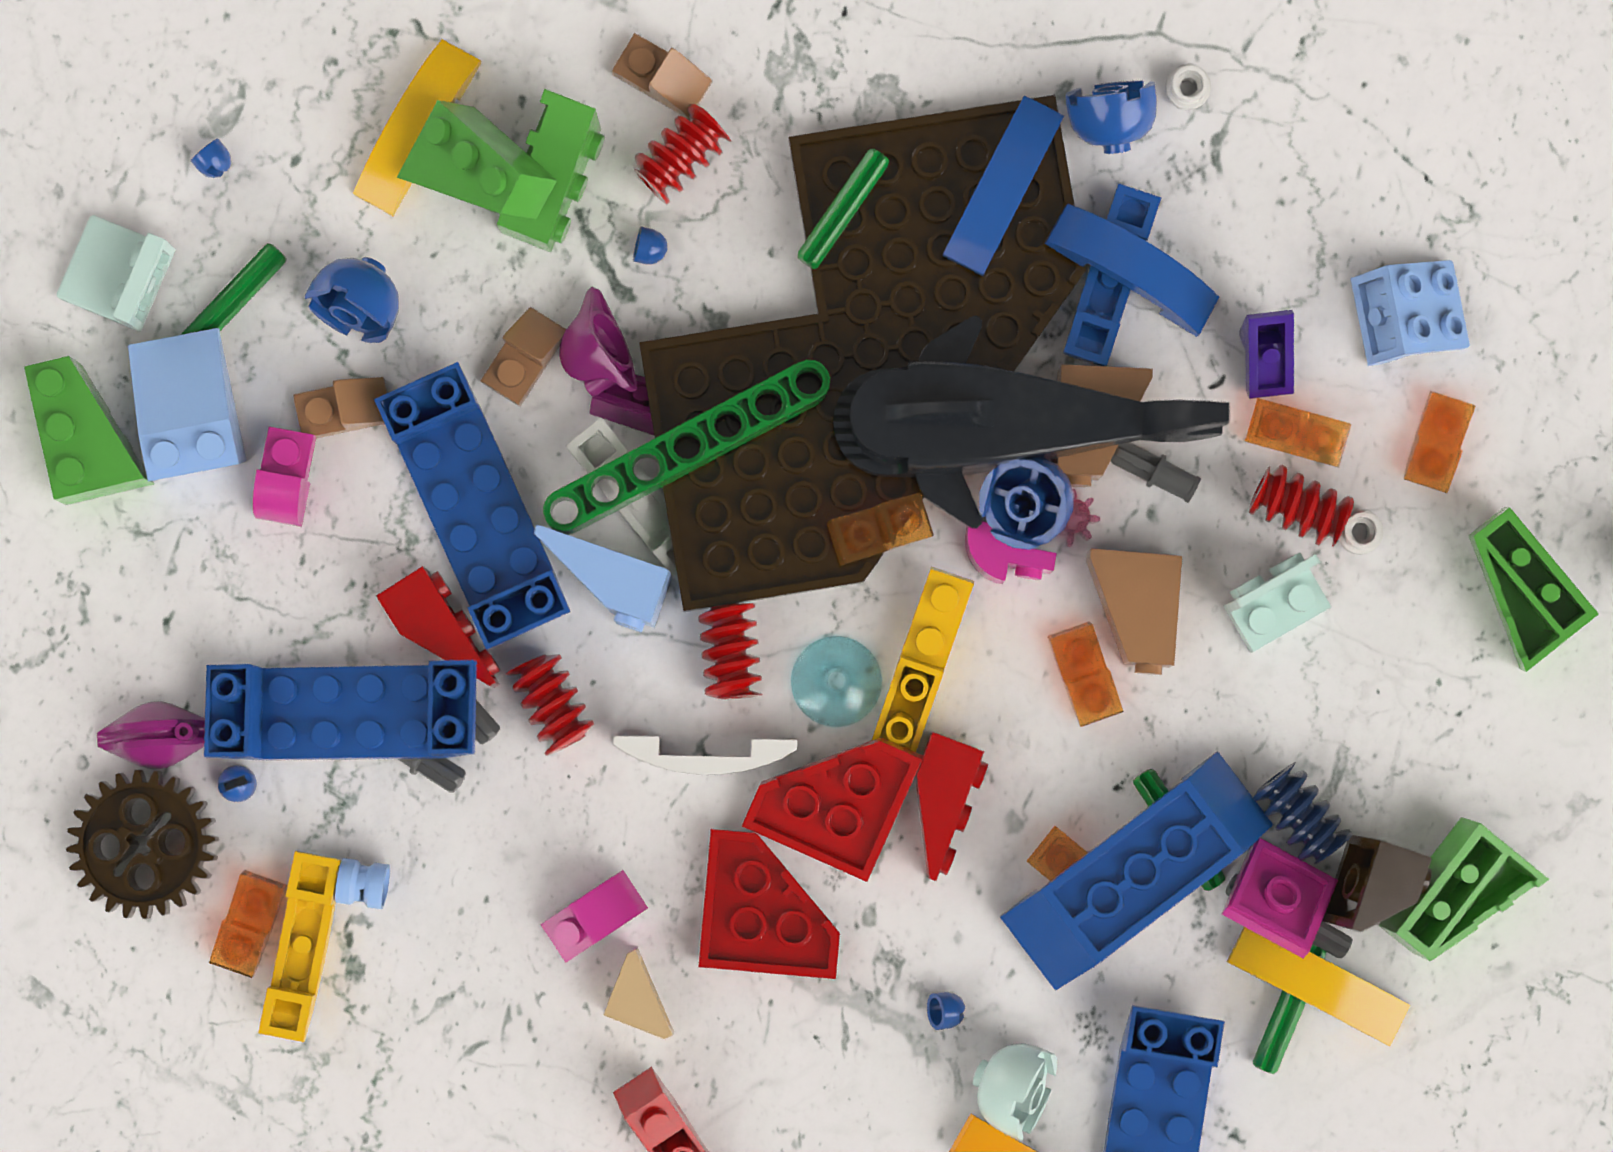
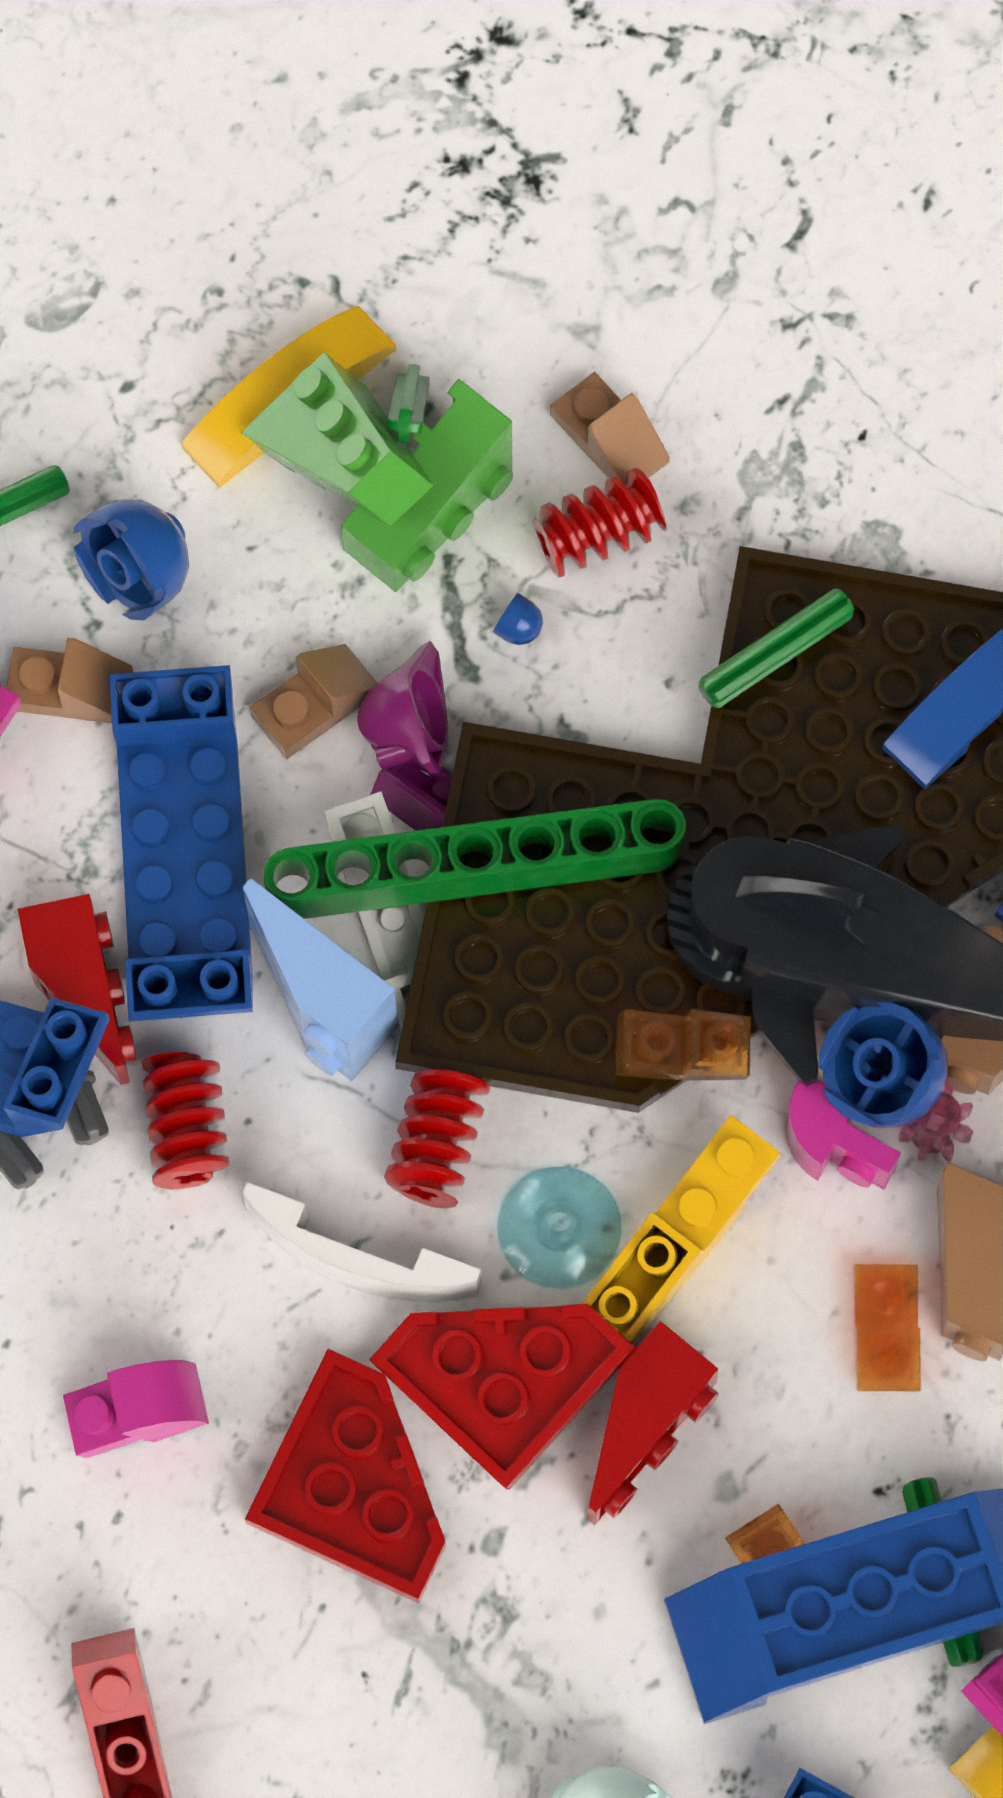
camera: 25 degrees right, 15 degrees down
(212, 159) = (27, 347): blue hinge -> none
(511, 113) = (408, 403): none -> axle
(636, 999) = (147, 1531): tan slope -> none
(945, 1010) = (547, 1694): blue hinge -> none

